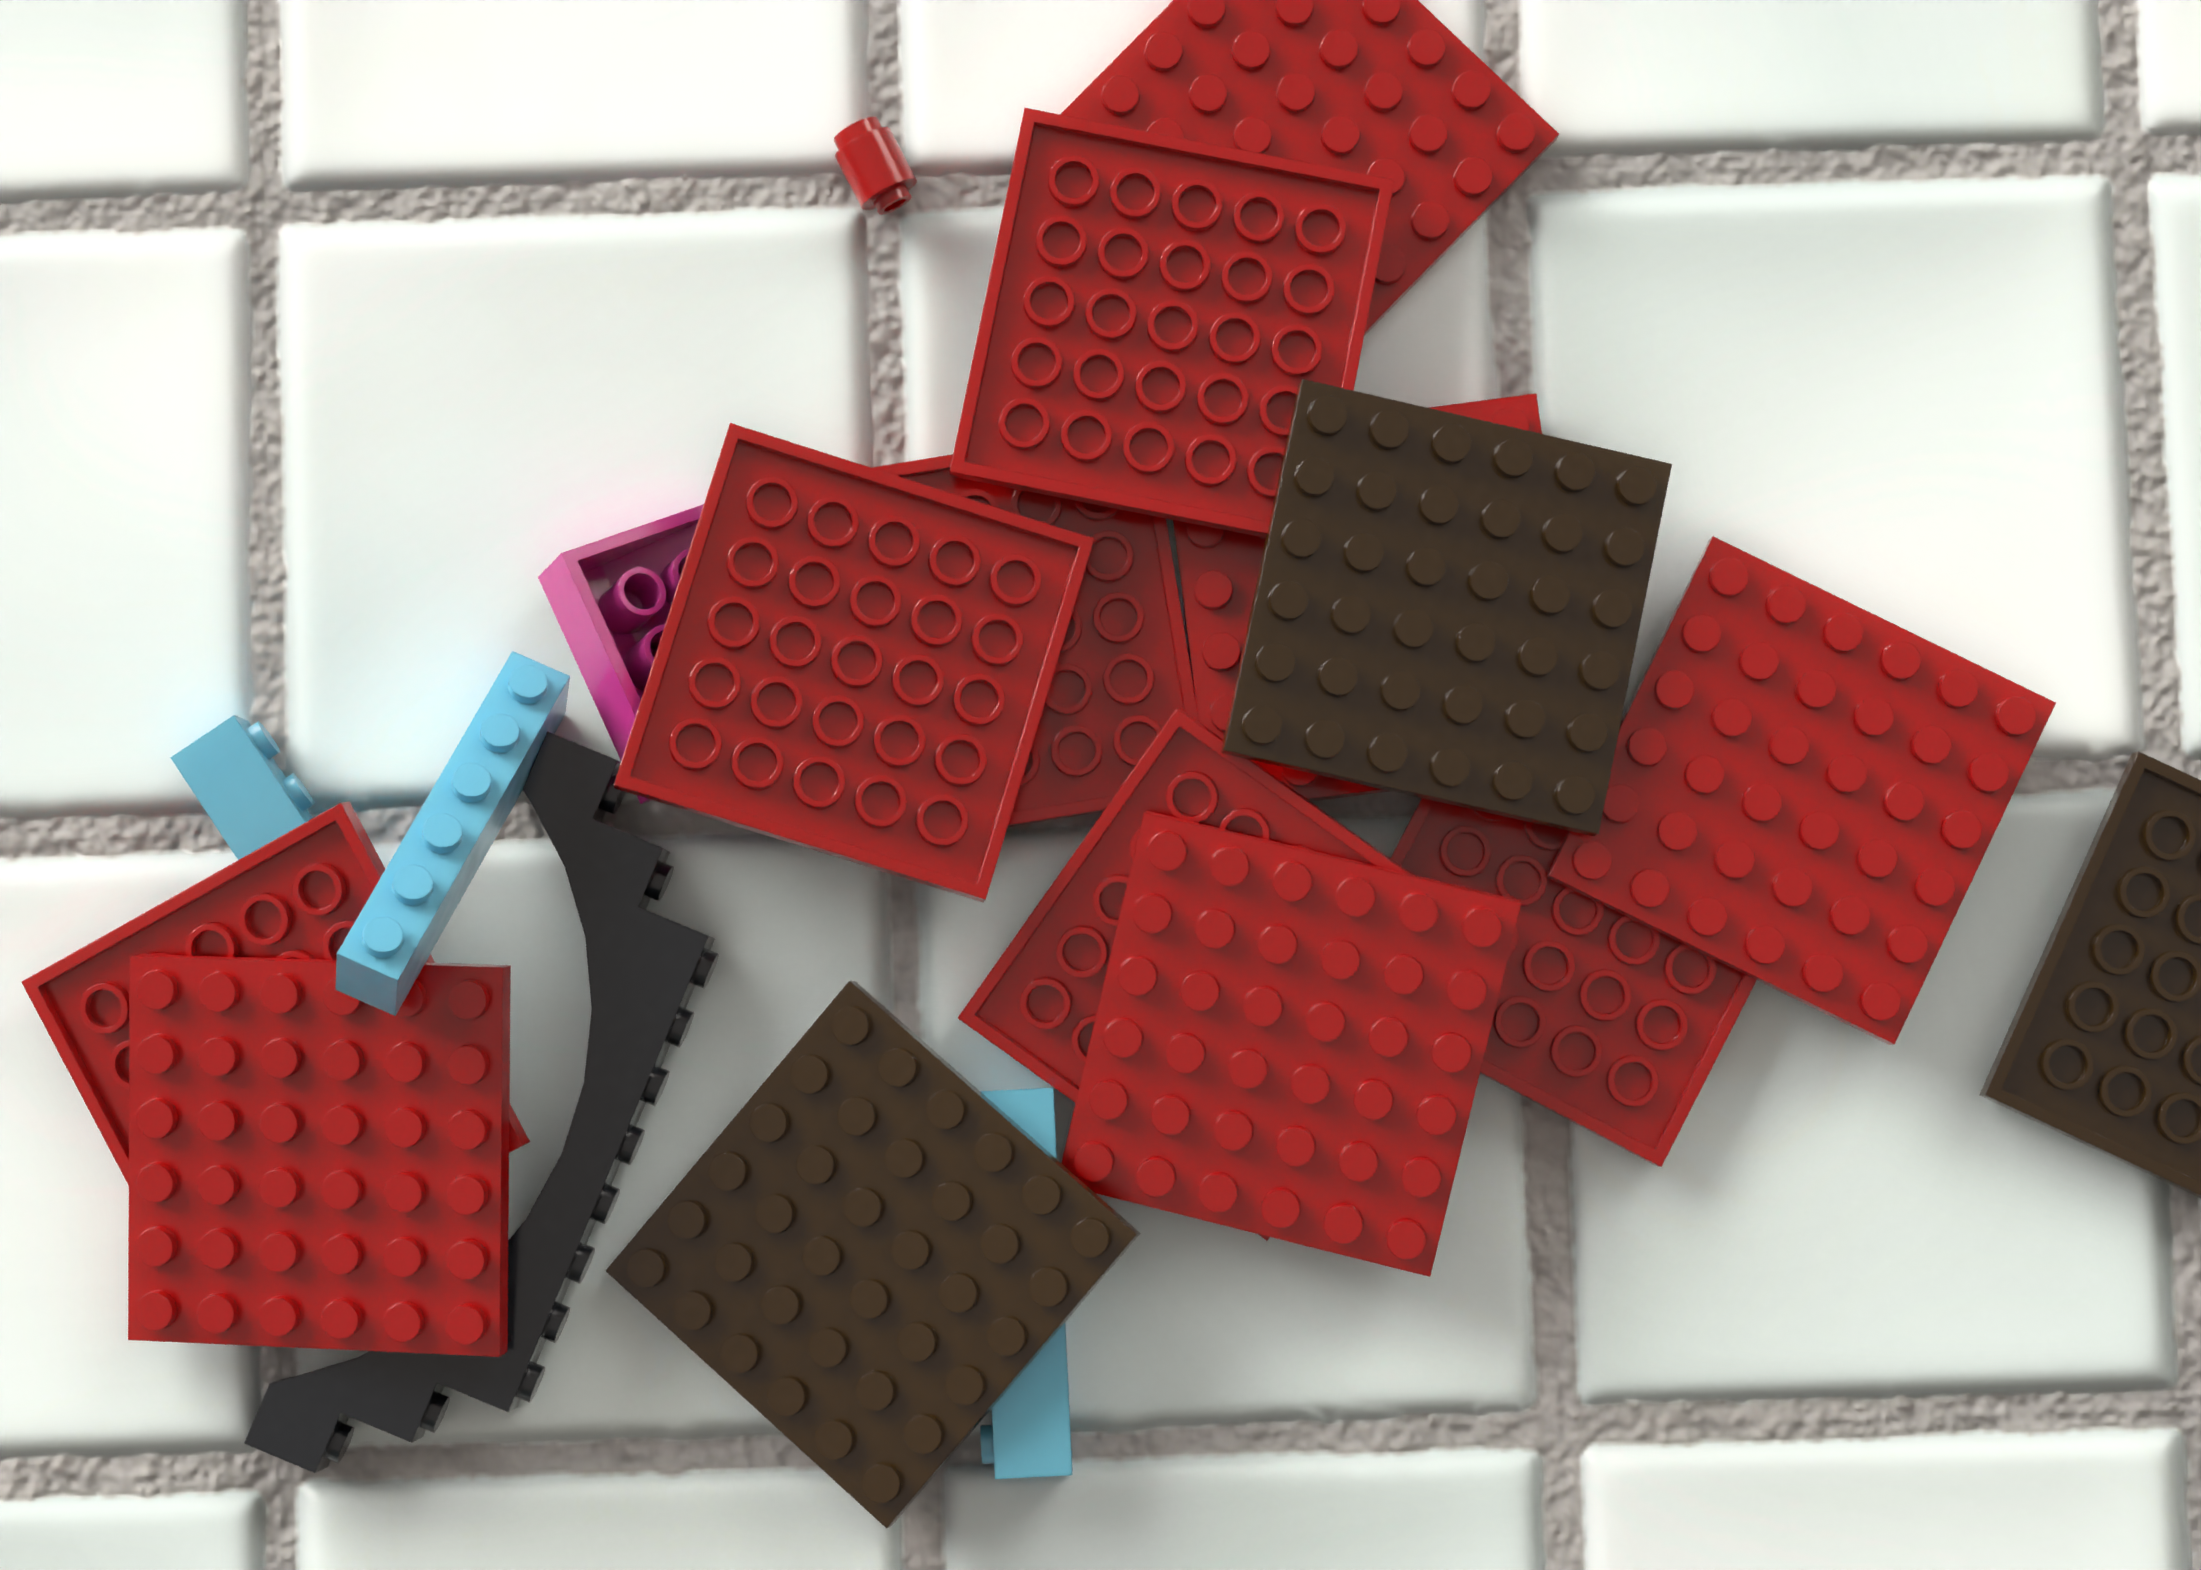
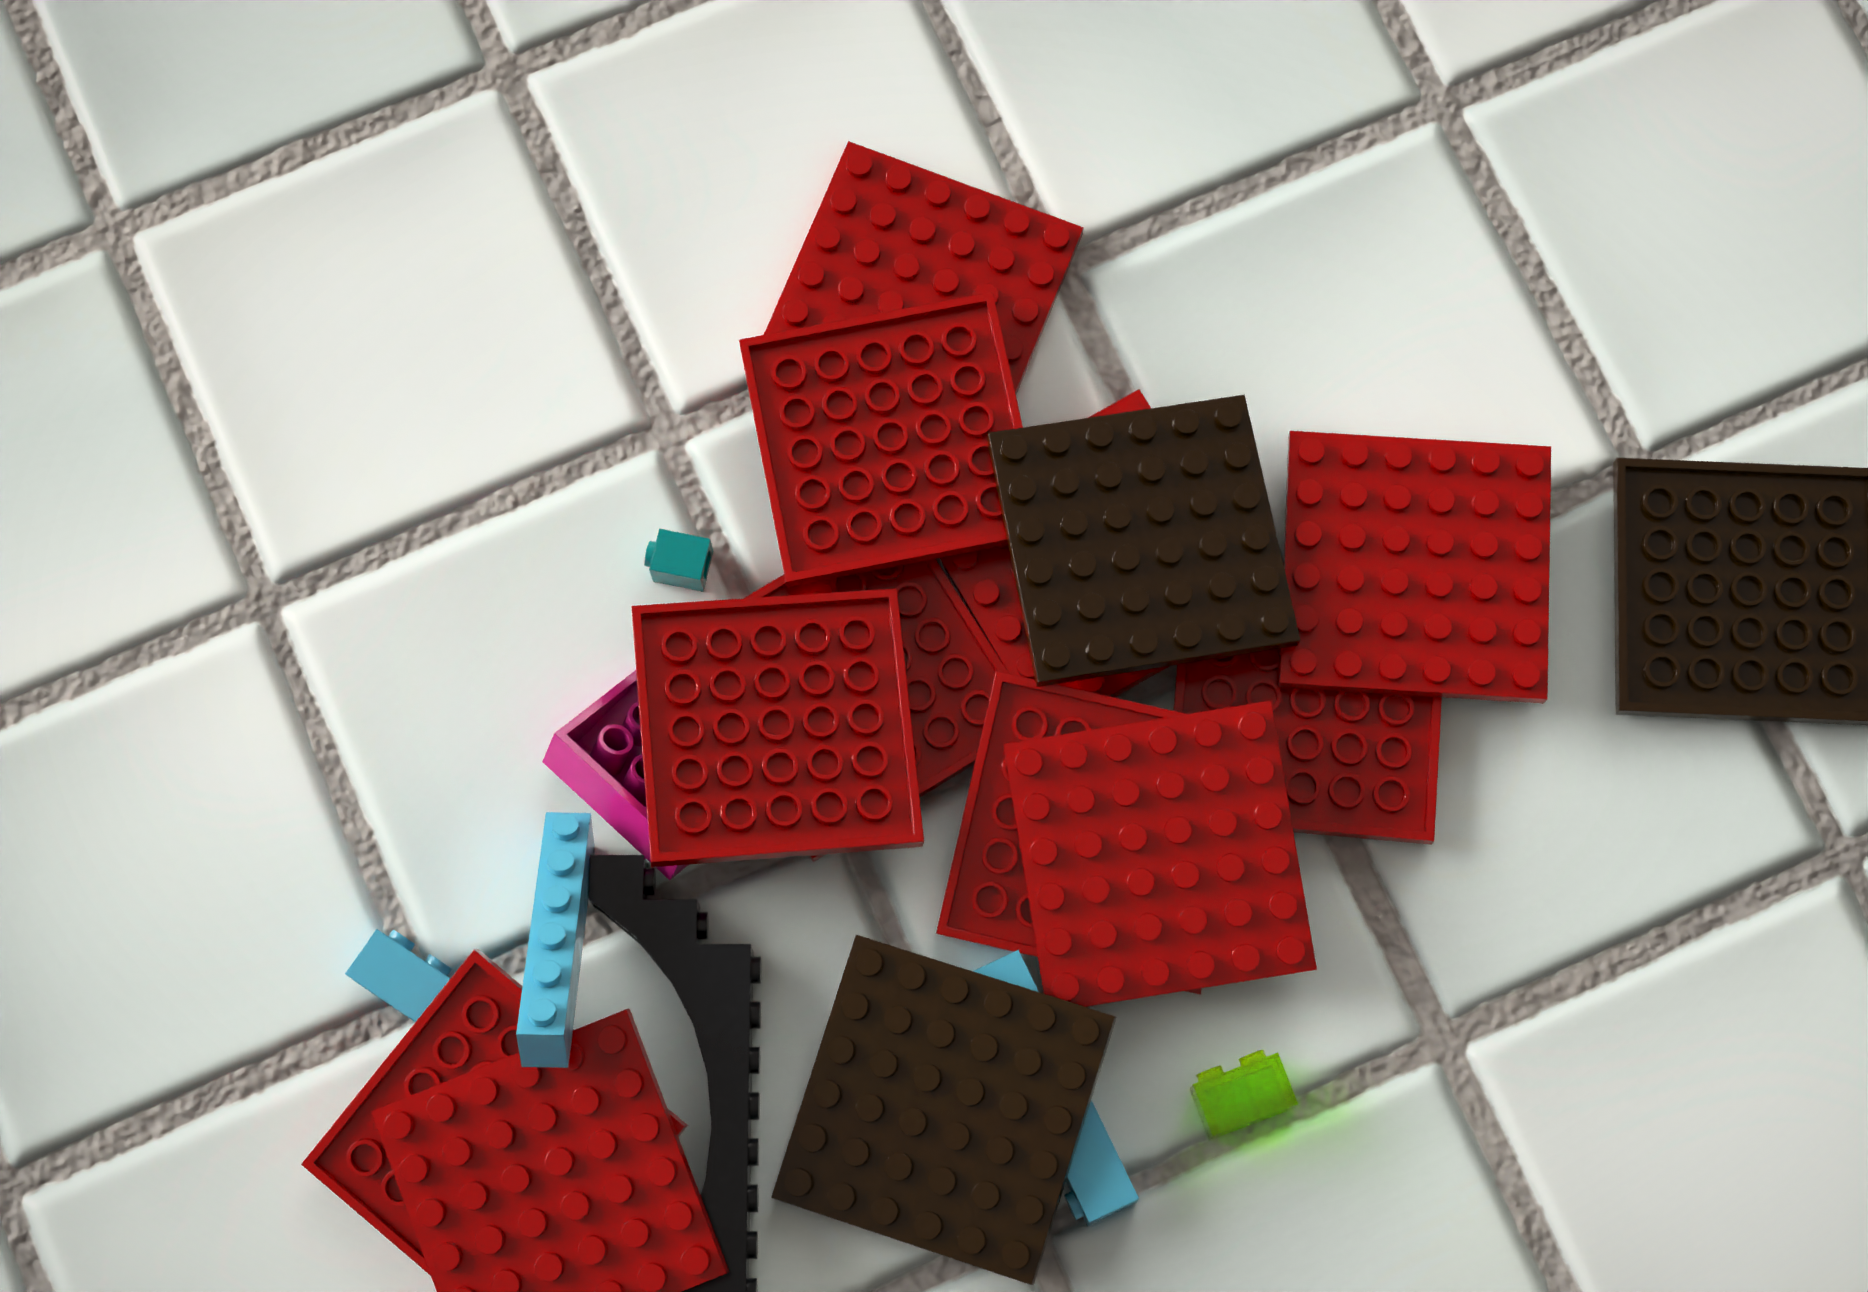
camera: 20 degrees left, 10 degrees down
(826, 376) = (679, 559): none -> teal brick
(874, 165) = (655, 416): red brick -> none
(1266, 1392) = (1243, 1094): none -> clear neon green brick

